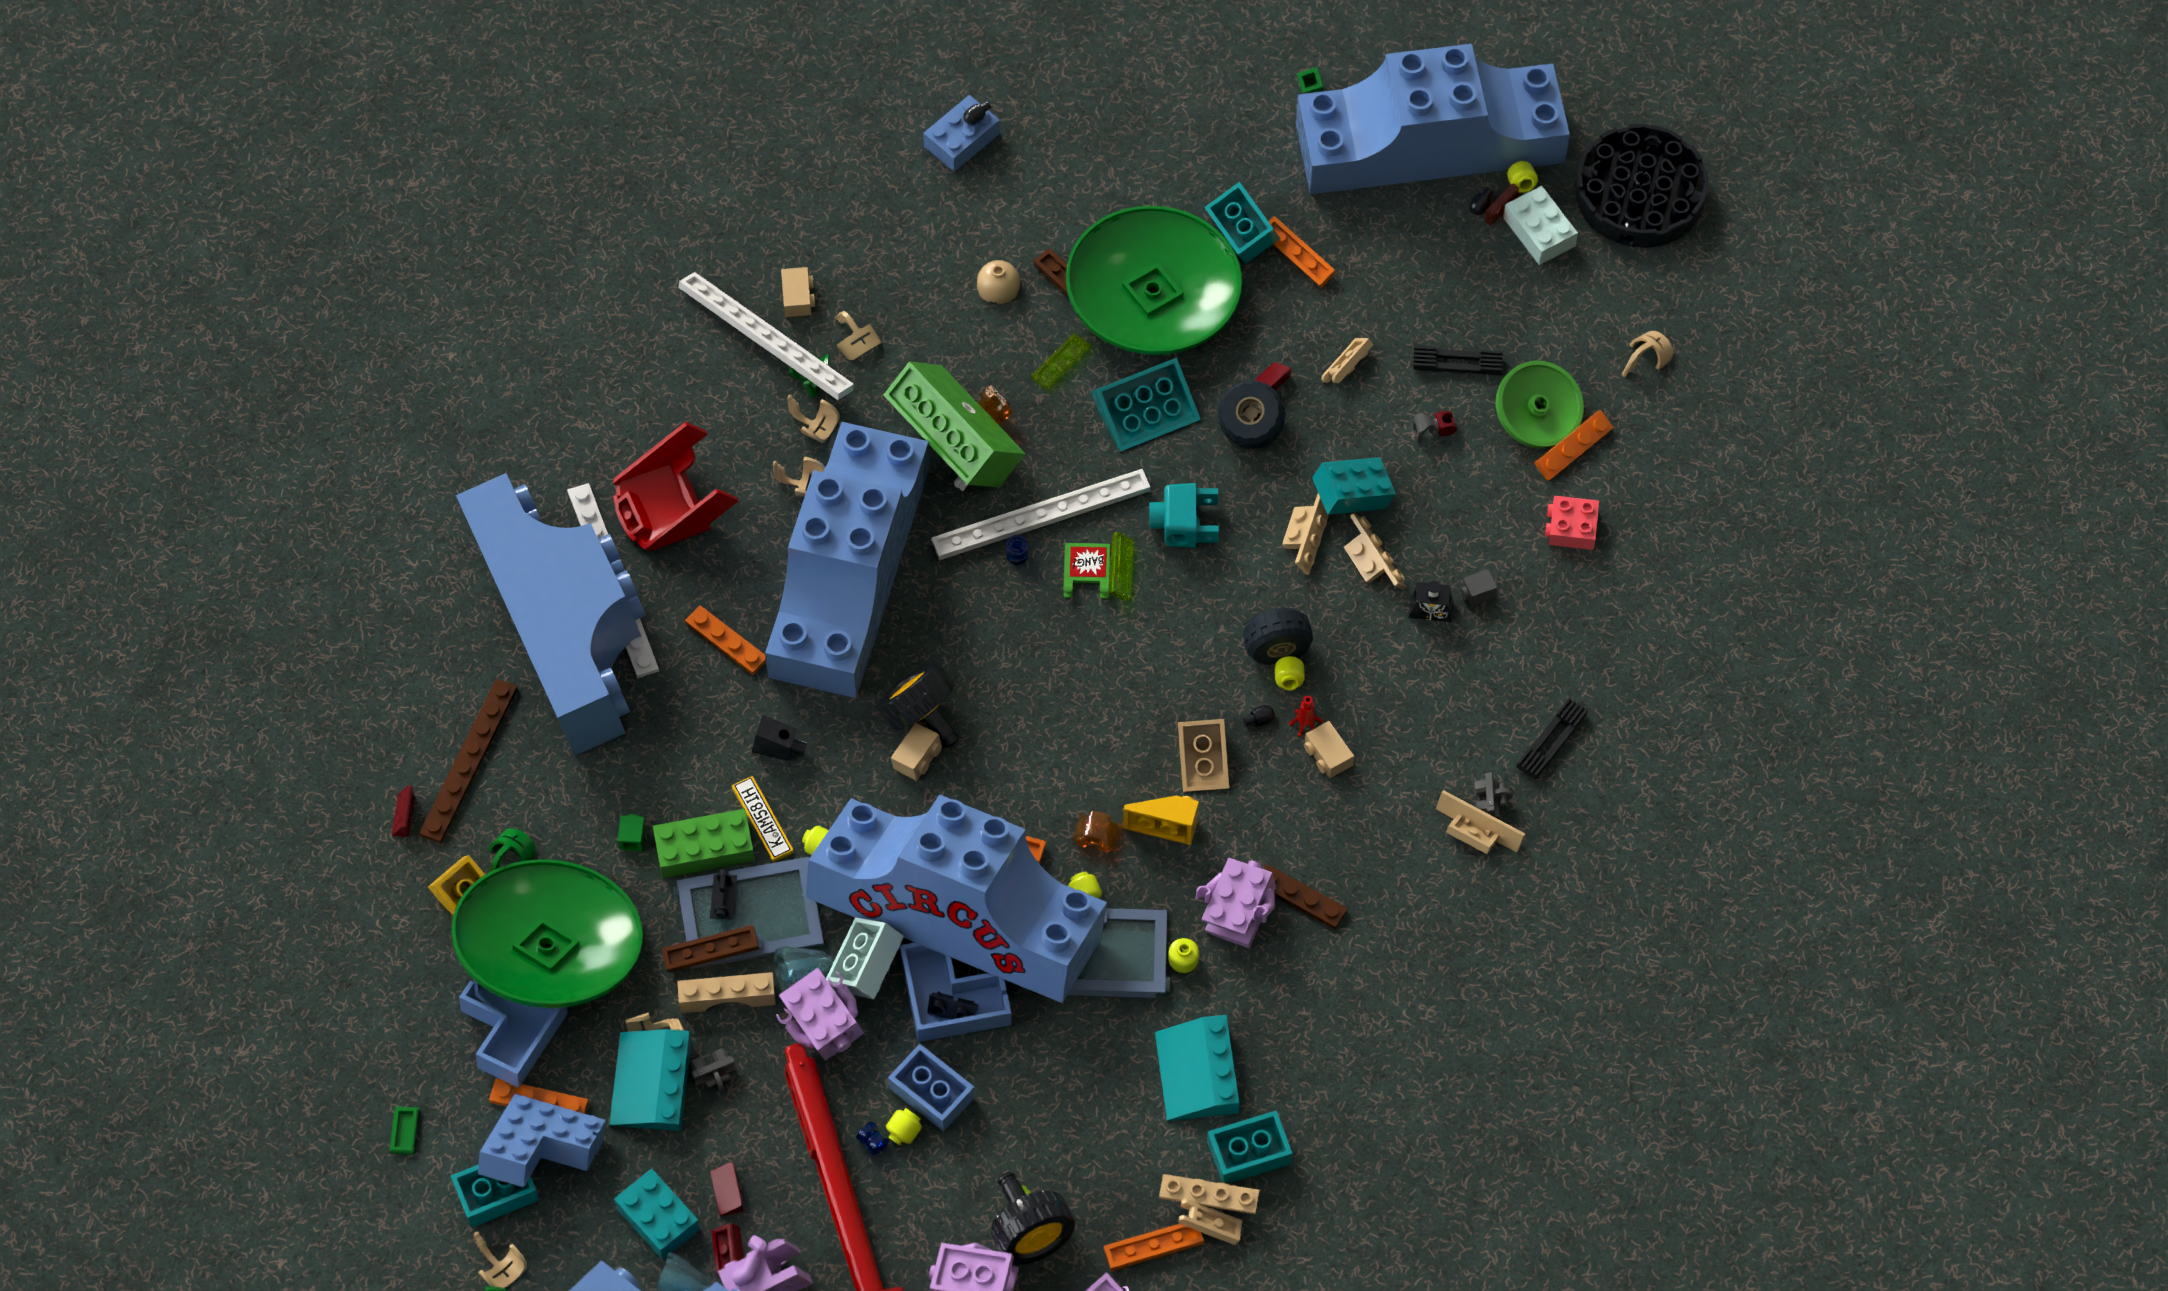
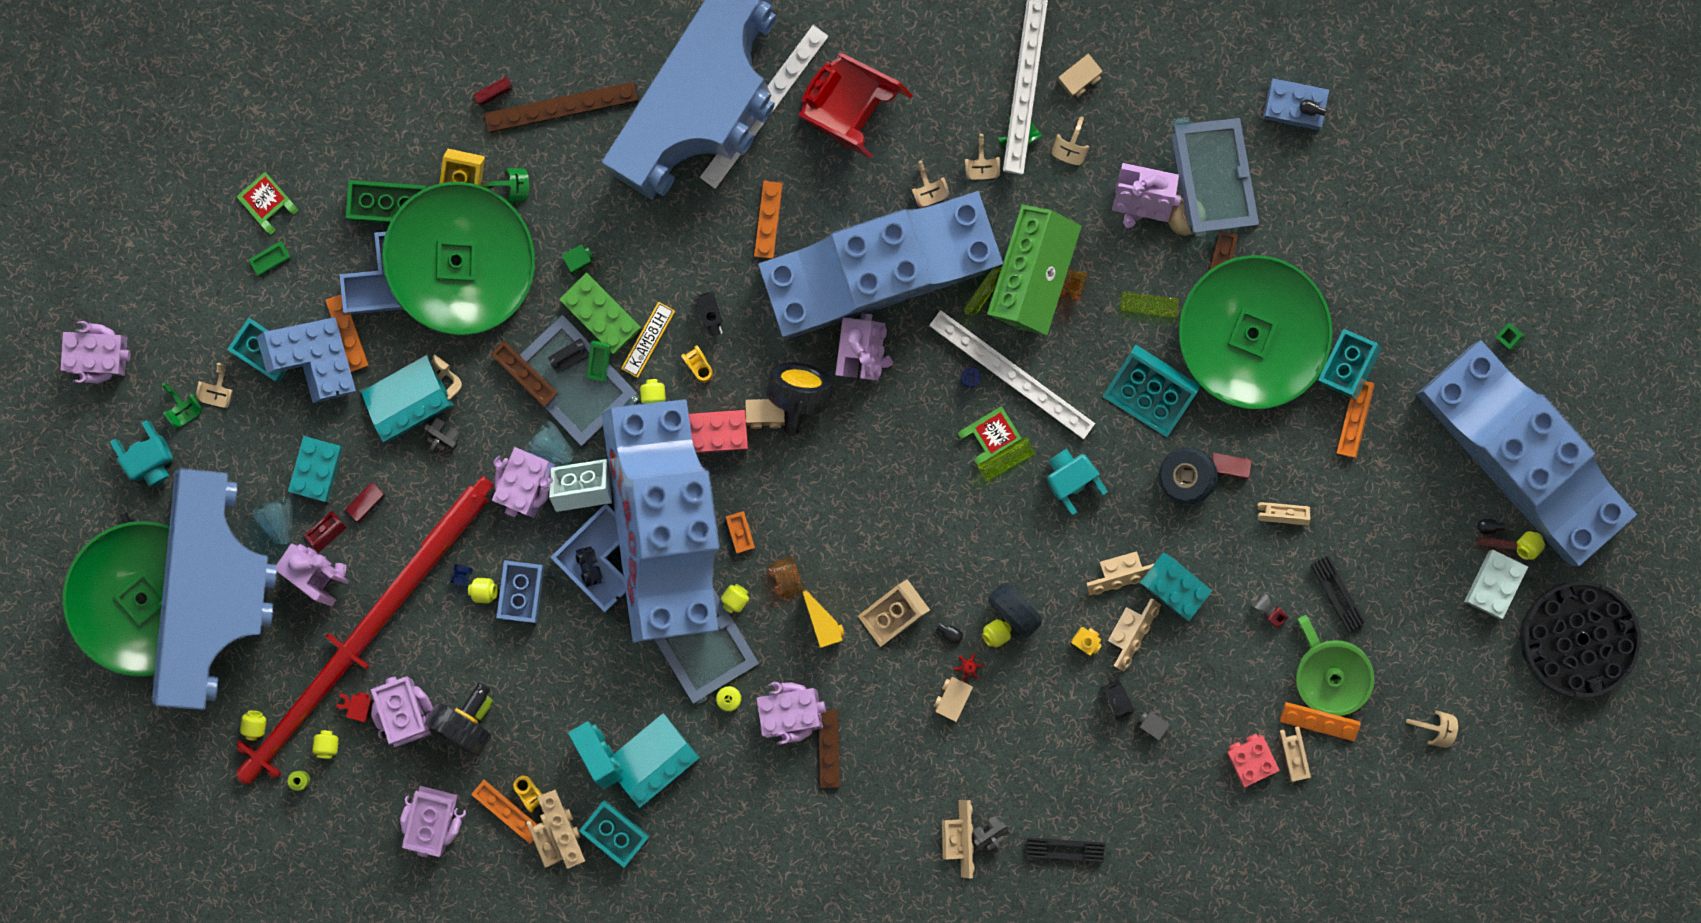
camera: 60 degrees right, 25 degrees up
(341, 1097) = (264, 199): none -> flag
(429, 982) = (377, 200): none -> green brick
(749, 989) = (501, 406): tan arch -> none
(750, 868) = (598, 361): none -> green tile
(821, 785) = (696, 362): none -> yellow piece
(908, 793) = (719, 431): none -> coral brick
(914, 617) = (862, 341): none -> lavender torso
(941, 483) = (983, 292): none -> clear neon green tile
(951, 295) = (1145, 194): none -> lavender torso
(976, 233) = (1214, 175): none -> door
(1150, 1210) = (528, 794): none -> yellow piece
(1154, 1109) = (596, 754): none -> teal brick
(1353, 598) = (1087, 641): none -> yellow brick
(1477, 404) = (1308, 631): none -> bright green beam
(1593, 484) = (1295, 755): none -> tan hinge

